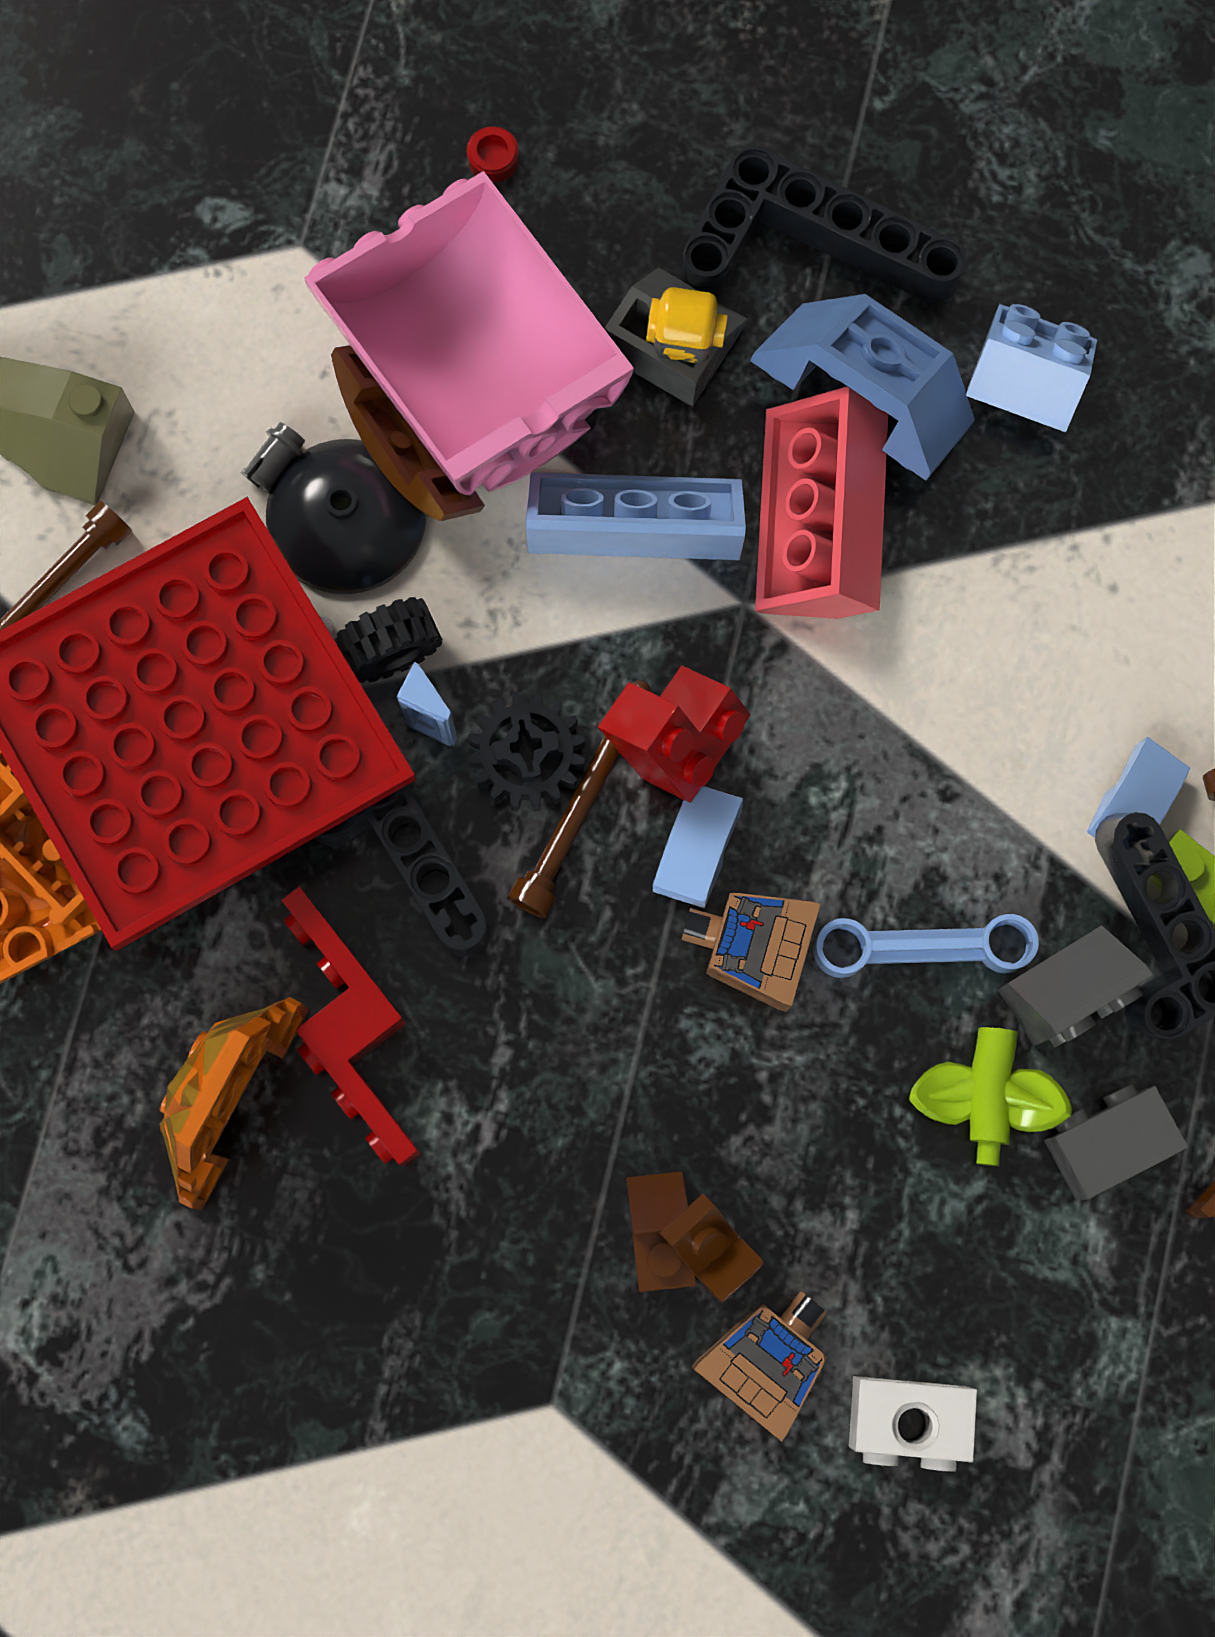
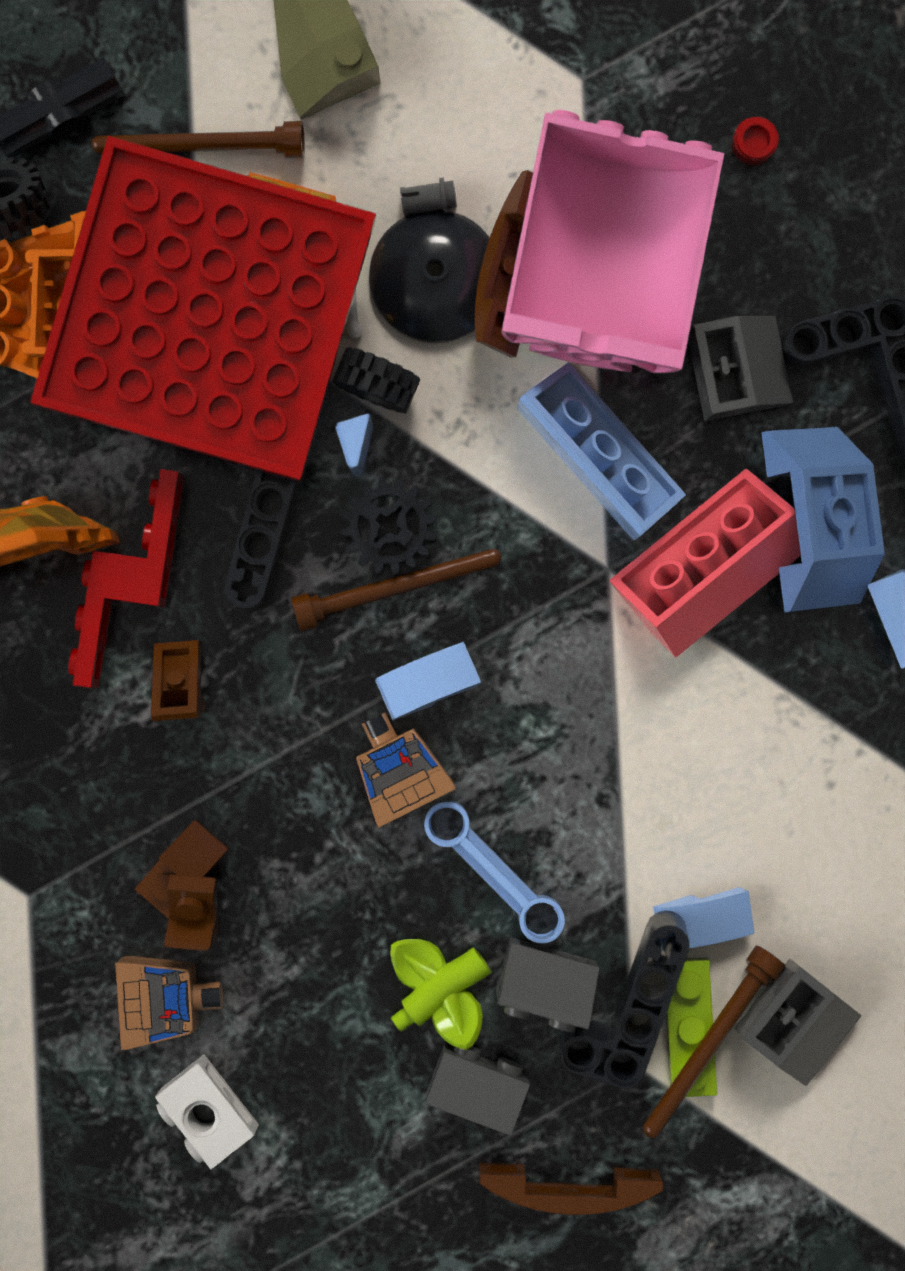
camera: 50 degrees right, 10 degrees up
(484, 1067) = (176, 681): none -> reddish brown slope
(676, 735) = (482, 609): red brick -> none
(685, 325) = (738, 375): yellow head -> none

